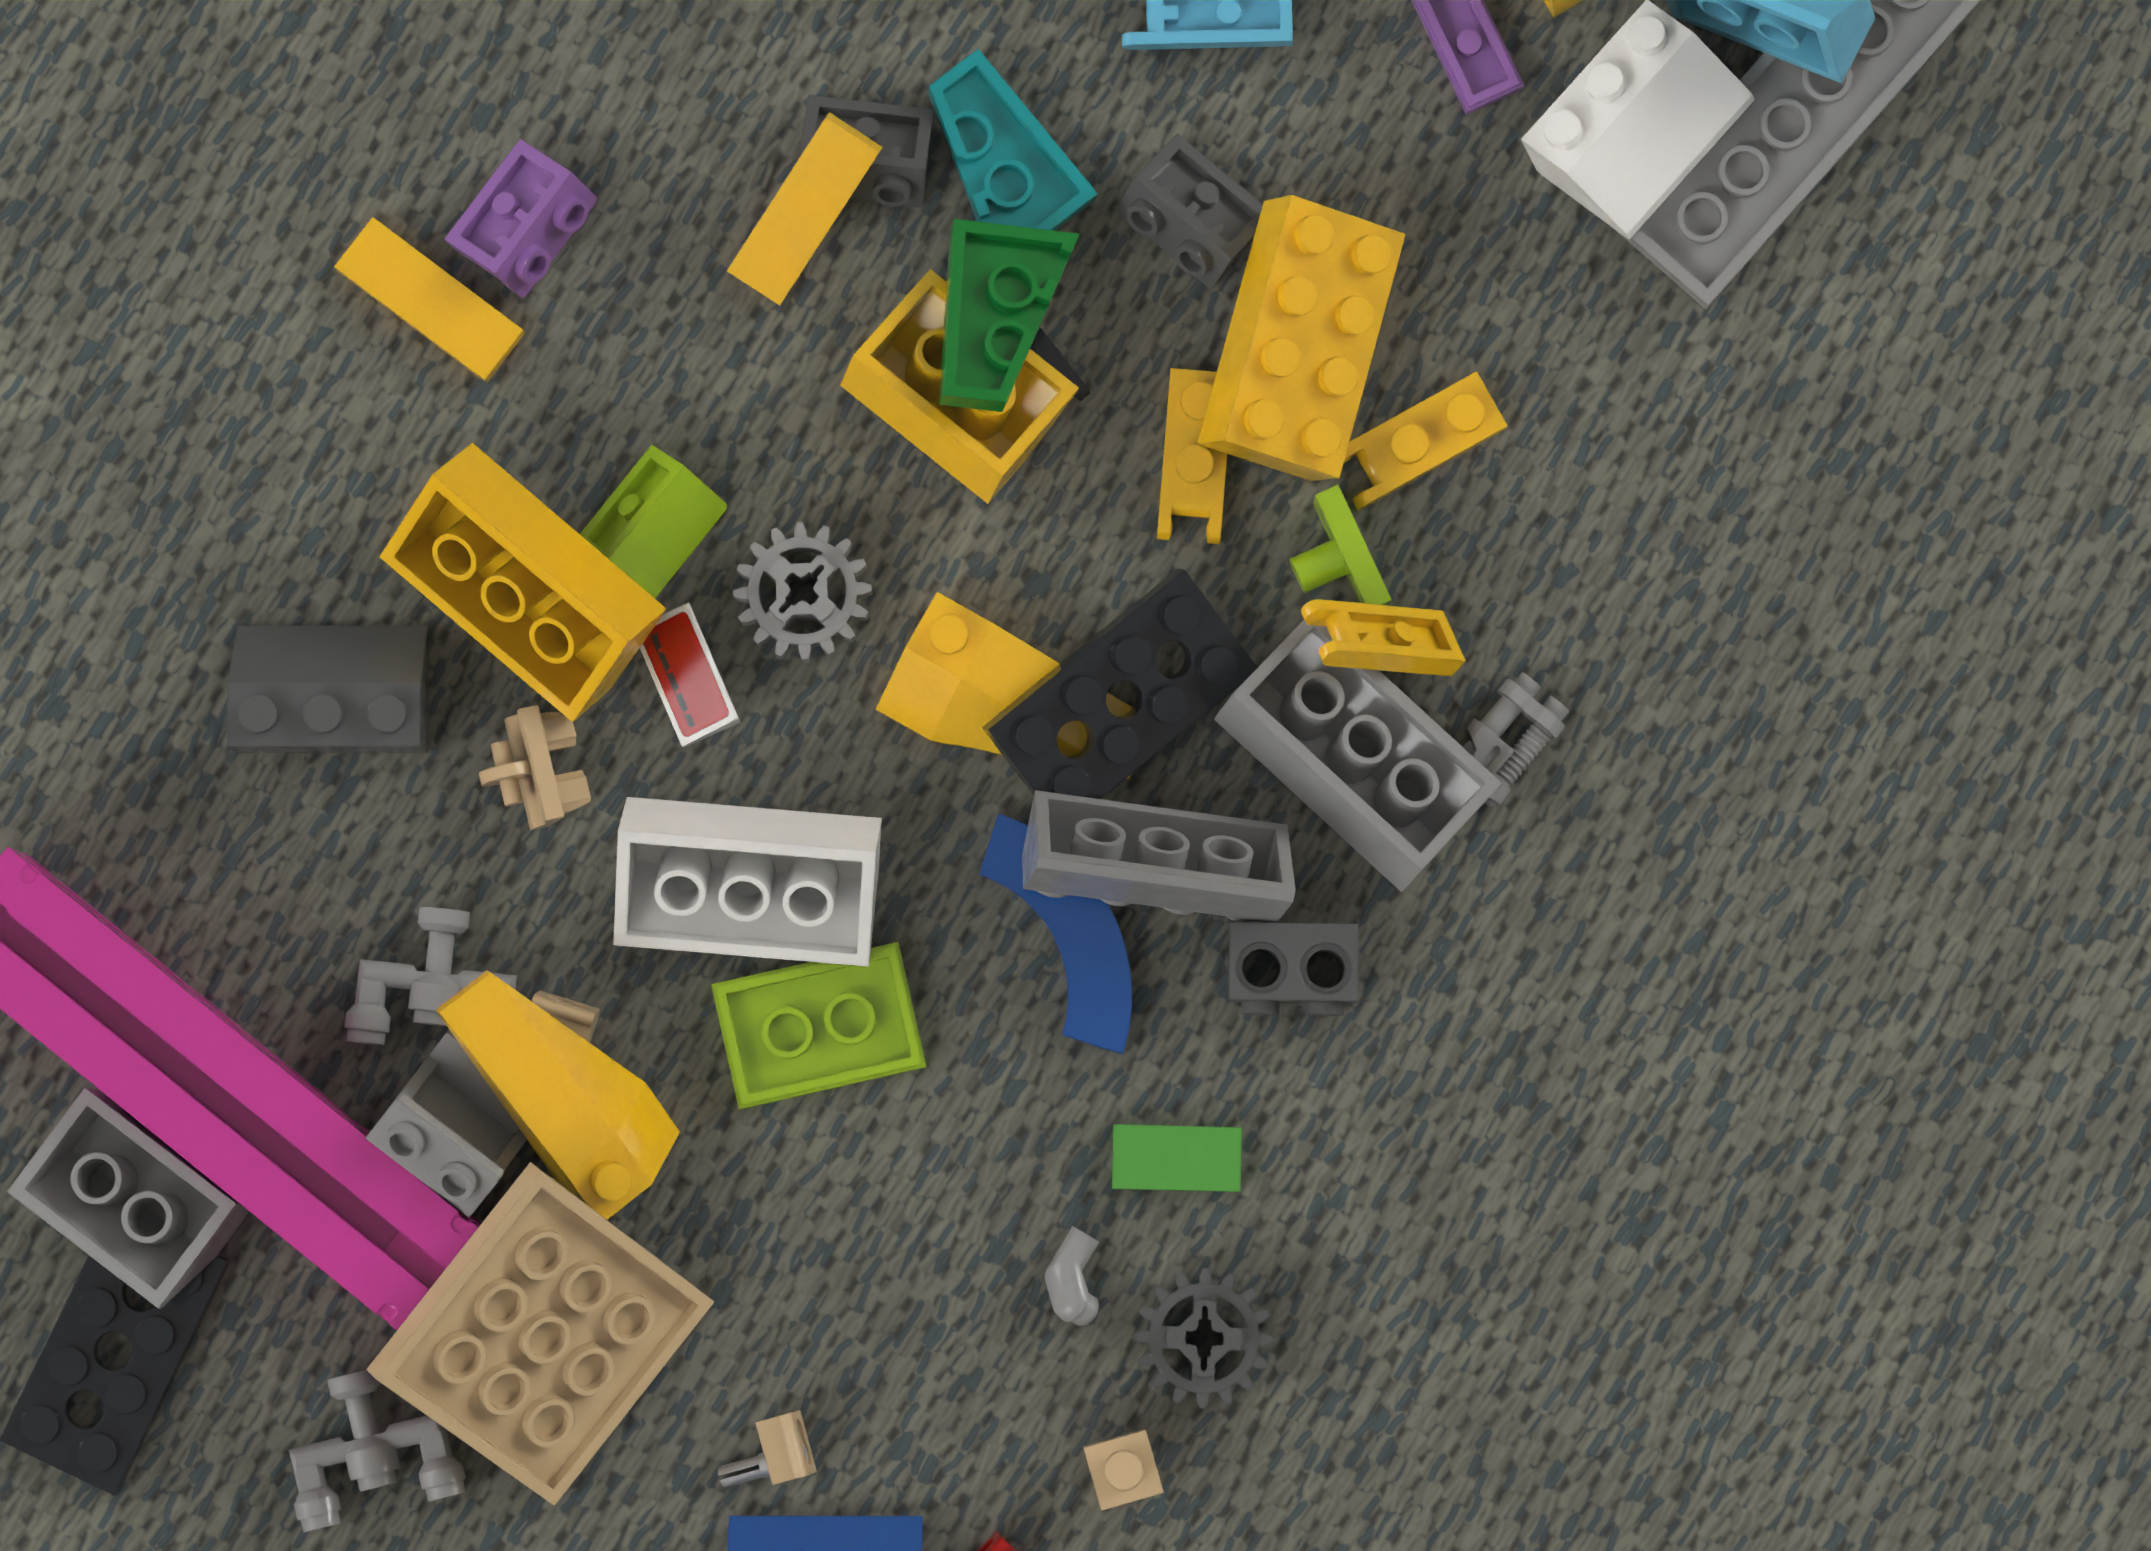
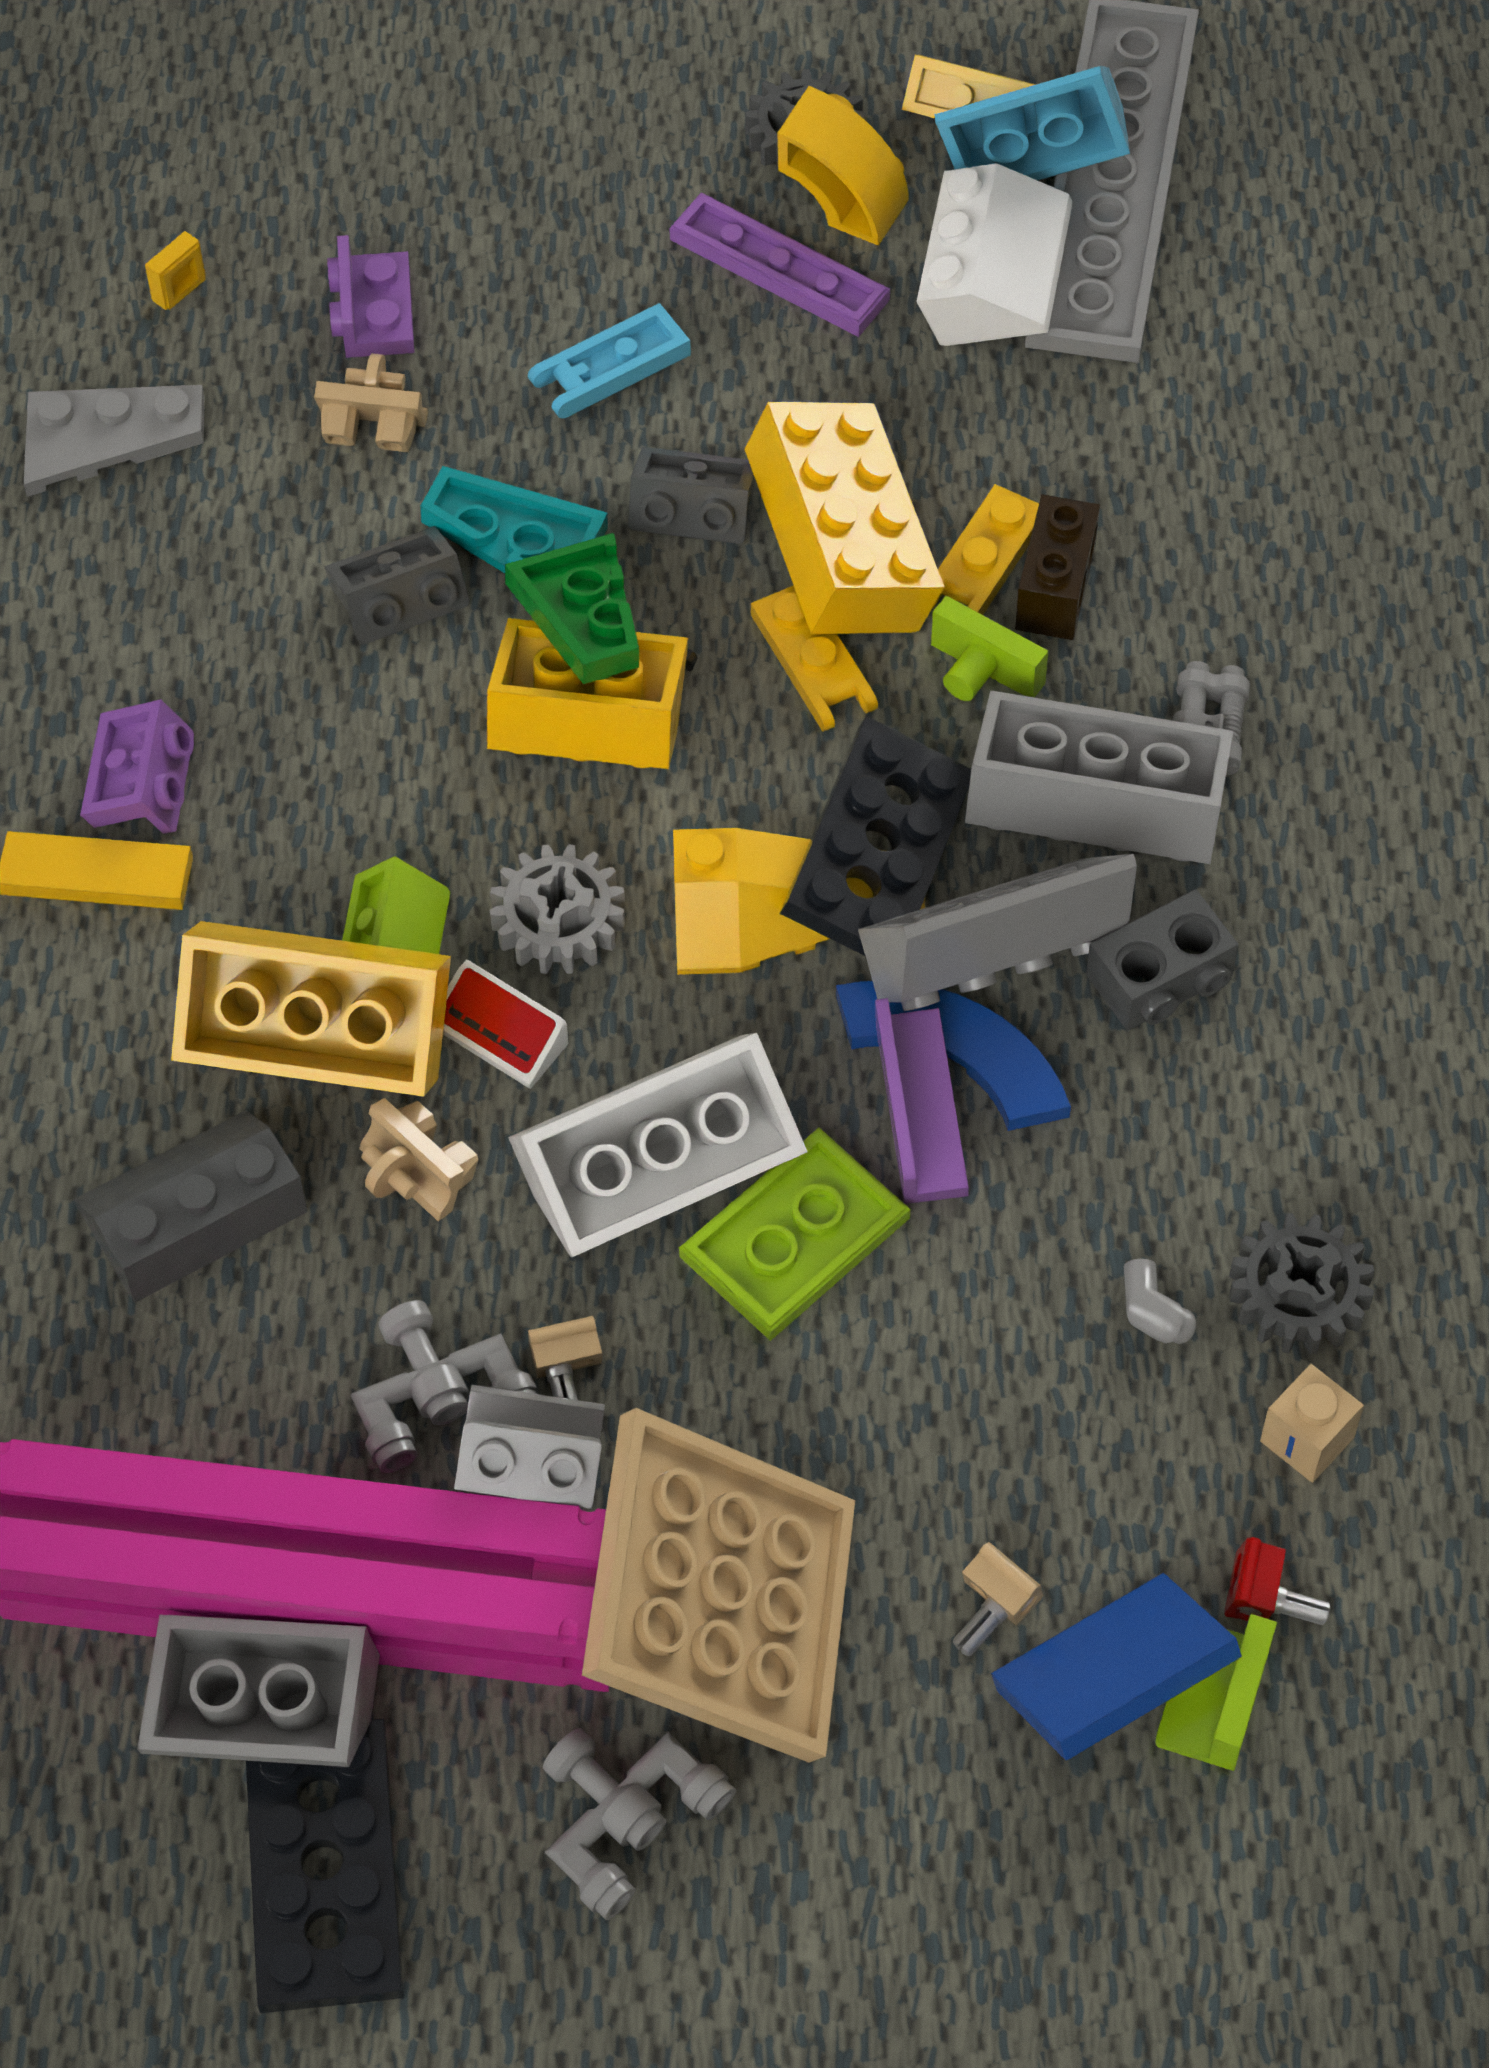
camera: 30 degrees left, 25 degrees down
(572, 1102) = (592, 1373): yellow wedge -> none
(804, 208) = (375, 632): yellow tile -> none
(993, 977) = (921, 1104): none -> medium lavender panel
(1176, 1158) = (1173, 1165): bright green tile -> none
(1385, 637) = (1057, 678): yellow hinge -> none
(1468, 504) = (1057, 567): none -> dark brown brick

